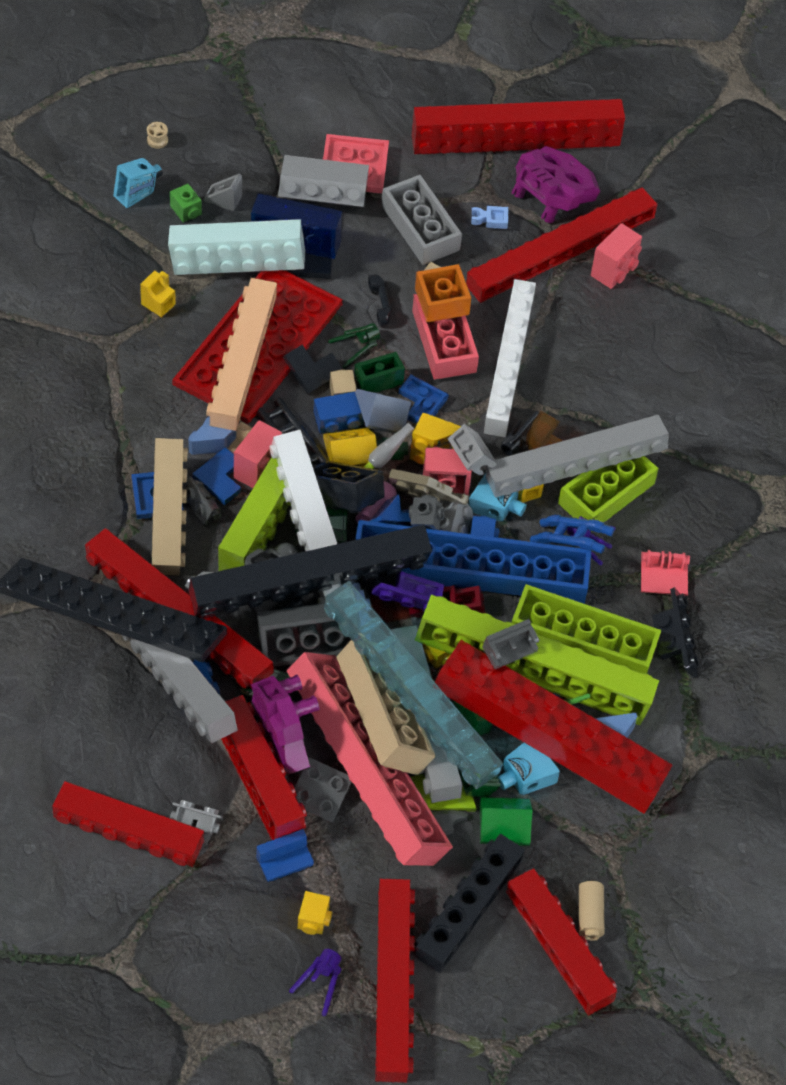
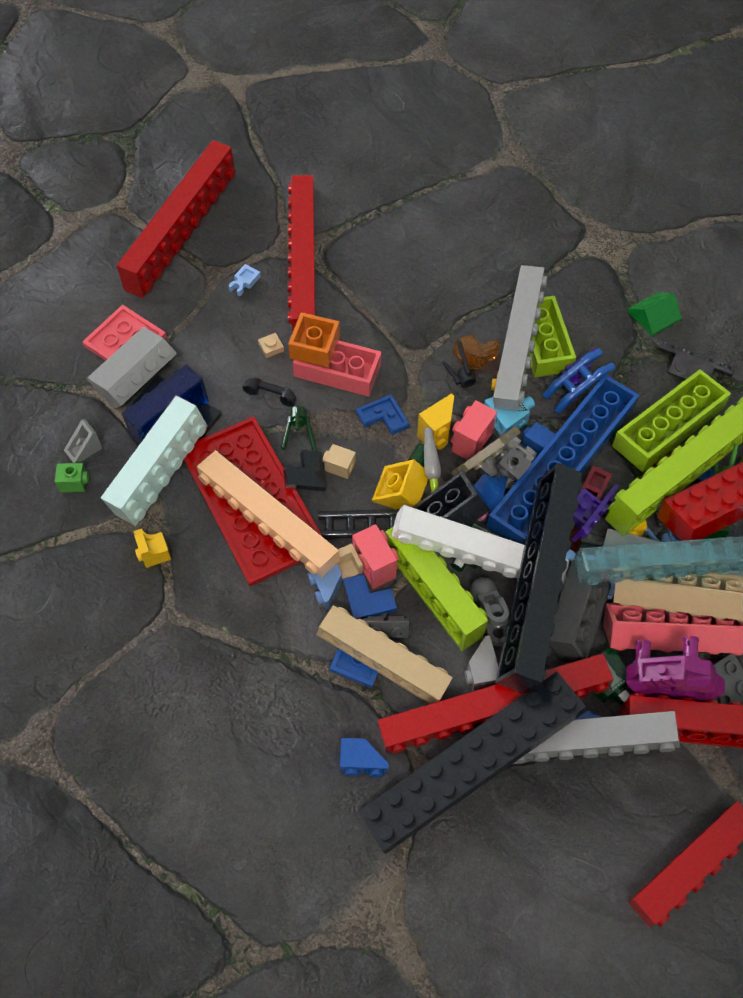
camera: 55 degrees left, 5 degrees up
(67, 535) = (360, 757): none -> blue slope
(135, 181) = (17, 494): medium azure torso -> none
(206, 819) = (714, 791): light grey hinge -> none
(337, 412) = (362, 477): blue brick -> none
(379, 373) = (347, 426): dark green brick -> none
(382, 411) = (383, 443): sand blue slope -> none
(421, 219) = (216, 322): light grey brick -> none
(471, 449) = (479, 399): light grey hinge -> none
(509, 358) = (387, 336): white brick -> none
(511, 644) = (692, 466): dark grey hinge -> none
(554, 180) = (245, 221): magenta brick -> none
(616, 256) = (343, 221): coral brick -> none
(663, 572) = (634, 344): coral hinge -> none
(722, 578) = (656, 312): none -> green slope

